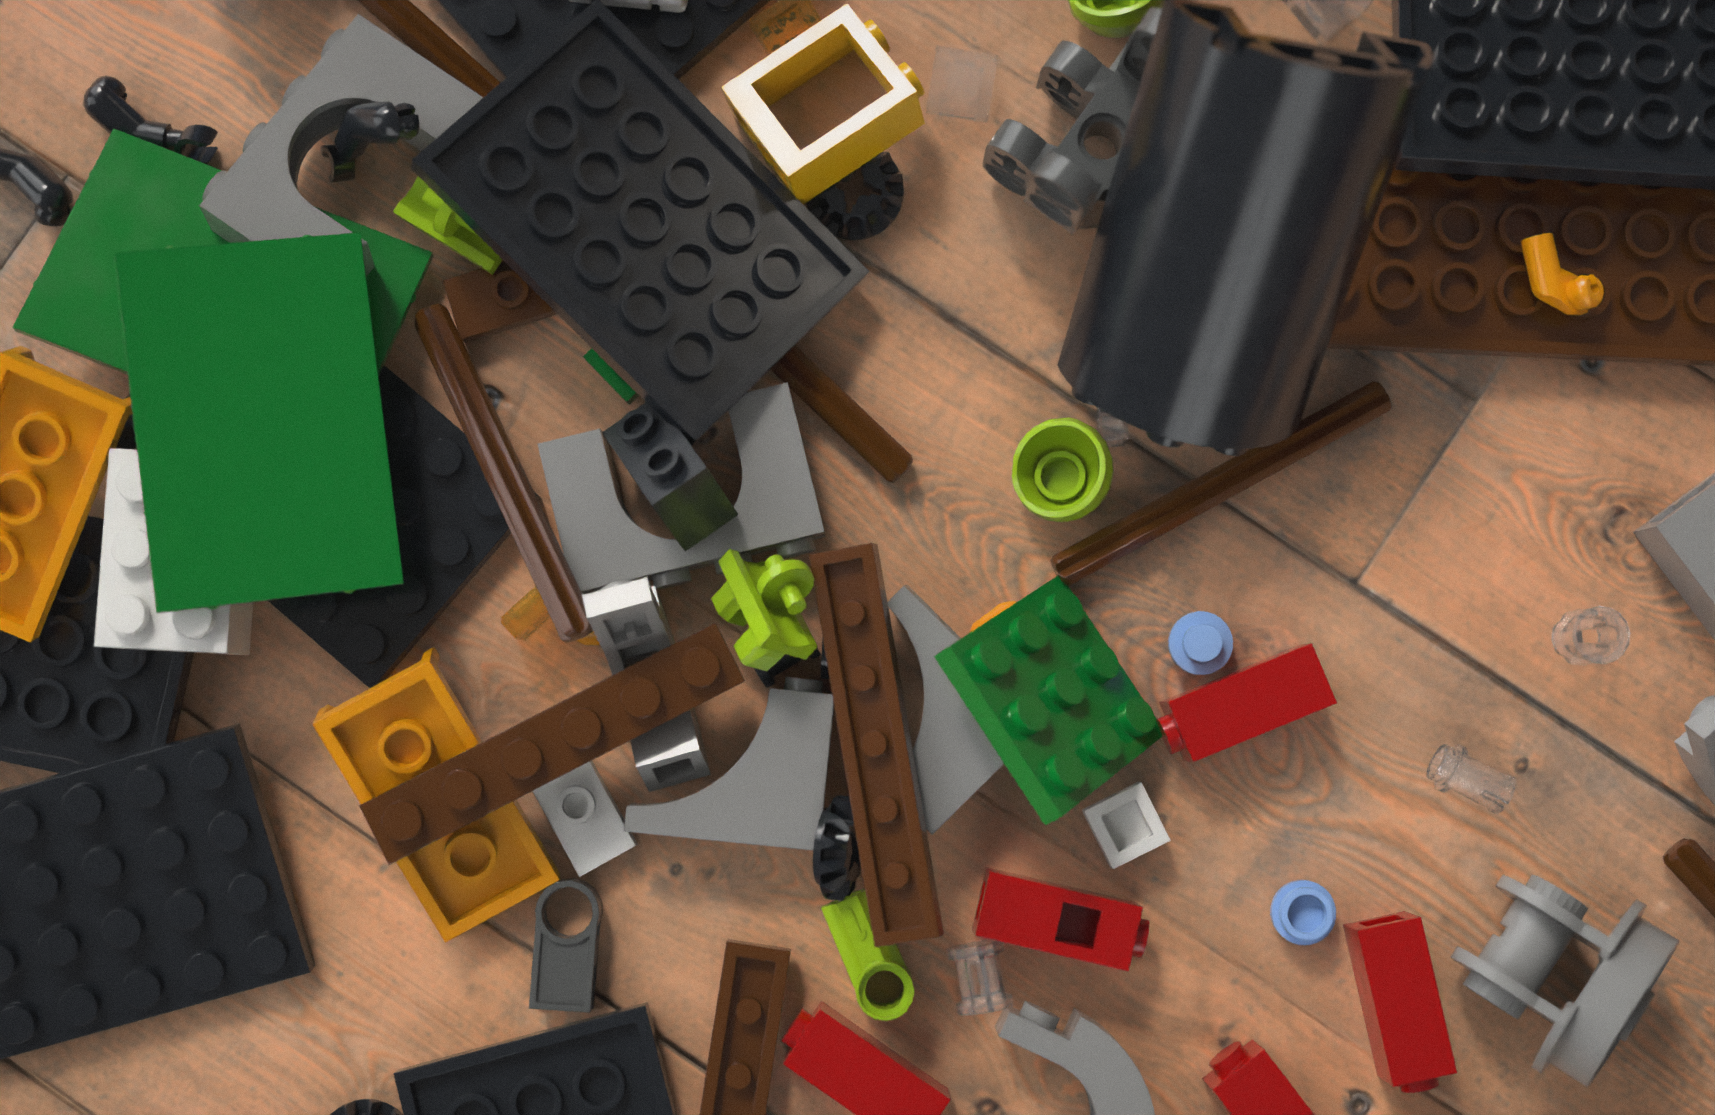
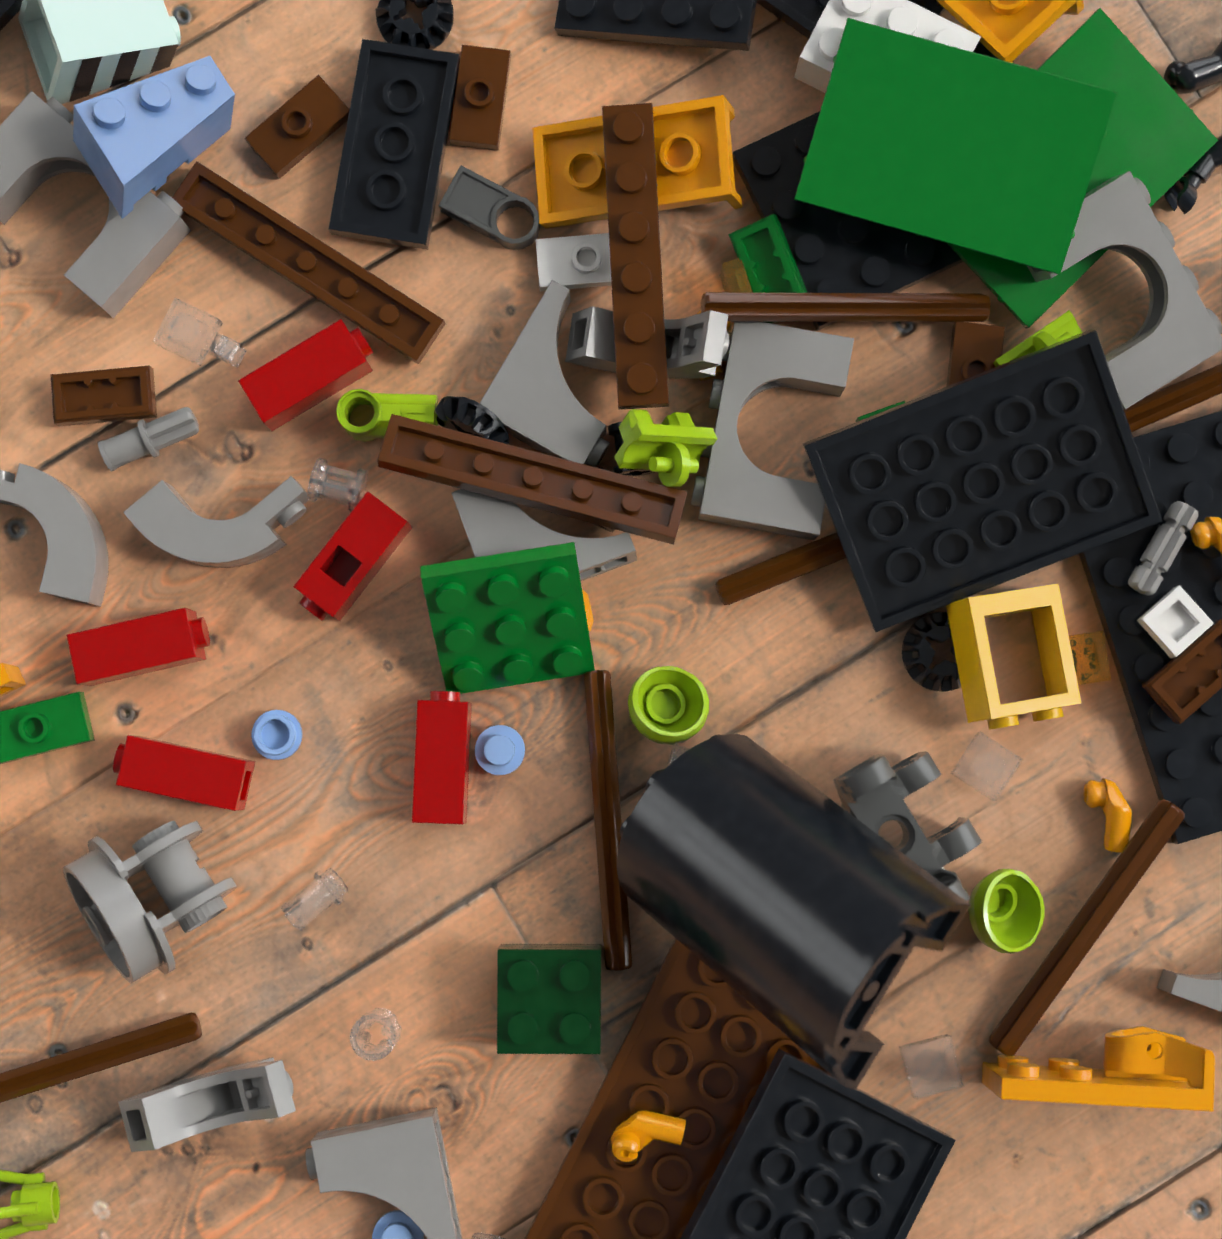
camera: 115 degrees right, 0 degrees up
(364, 125) = (1139, 316): black arm -> none
(433, 1024) = (480, 97): none -> reddish brown plate
(484, 588) = (767, 257): none -> green plate
(670, 475) = (787, 419): black brick -> none
(1126, 825) = (395, 636): white plate -> none
(1458, 455) = (549, 999): none -> dark green brick

